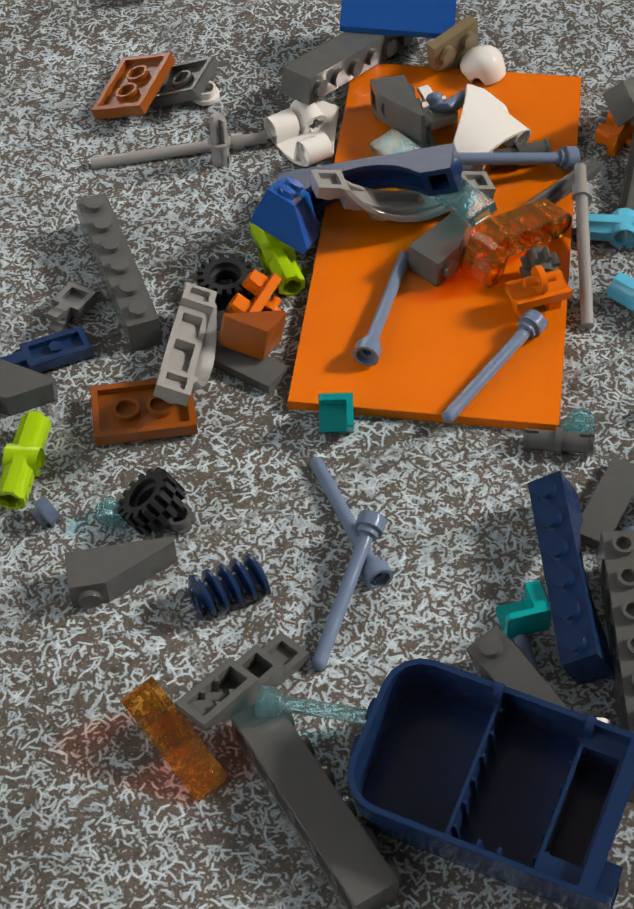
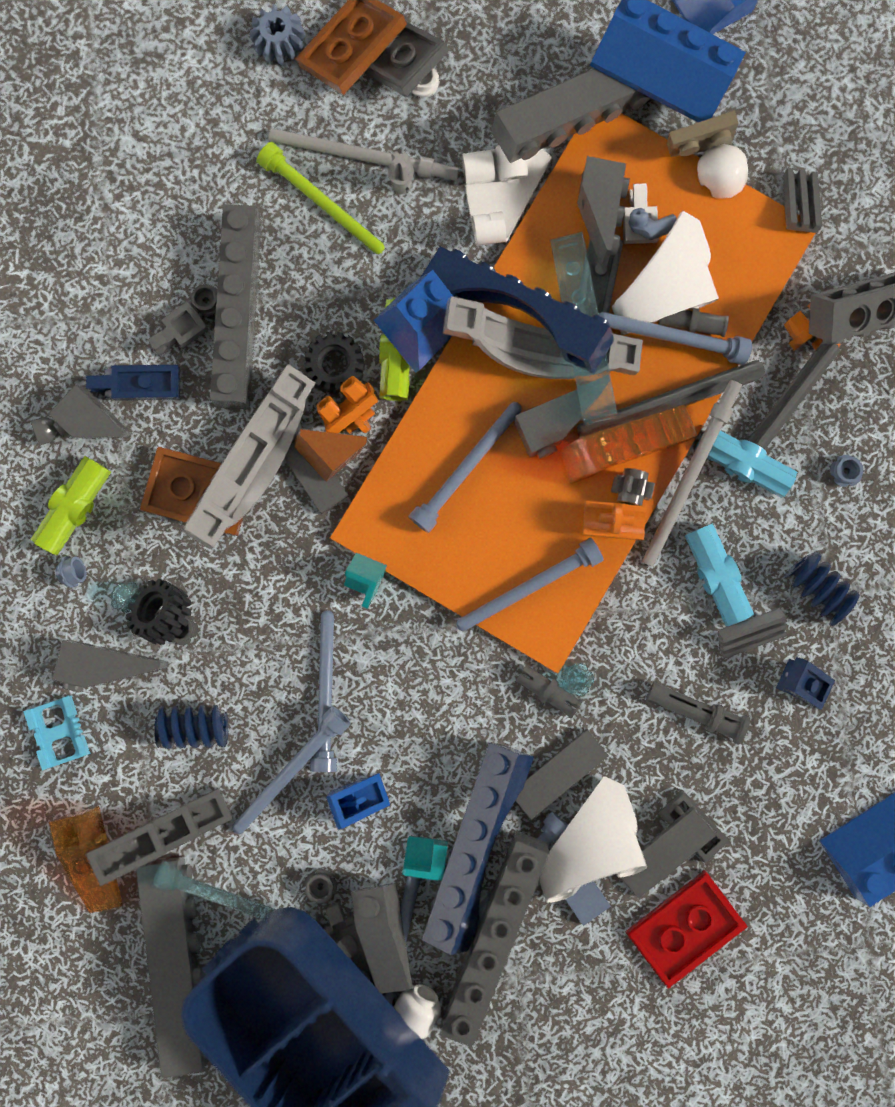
camera: 20 degrees right, 35 degrees up
(68, 101) = (277, 34): none -> sand blue gear
(86, 276) = (198, 296): none -> dark grey plate
(99, 643) = (46, 736): none -> medium azure piece
(101, 174) = (272, 159): none -> lime piece
(424, 590) = (357, 800): none -> blue slope
(556, 64) = (808, 201): none -> dark grey tile

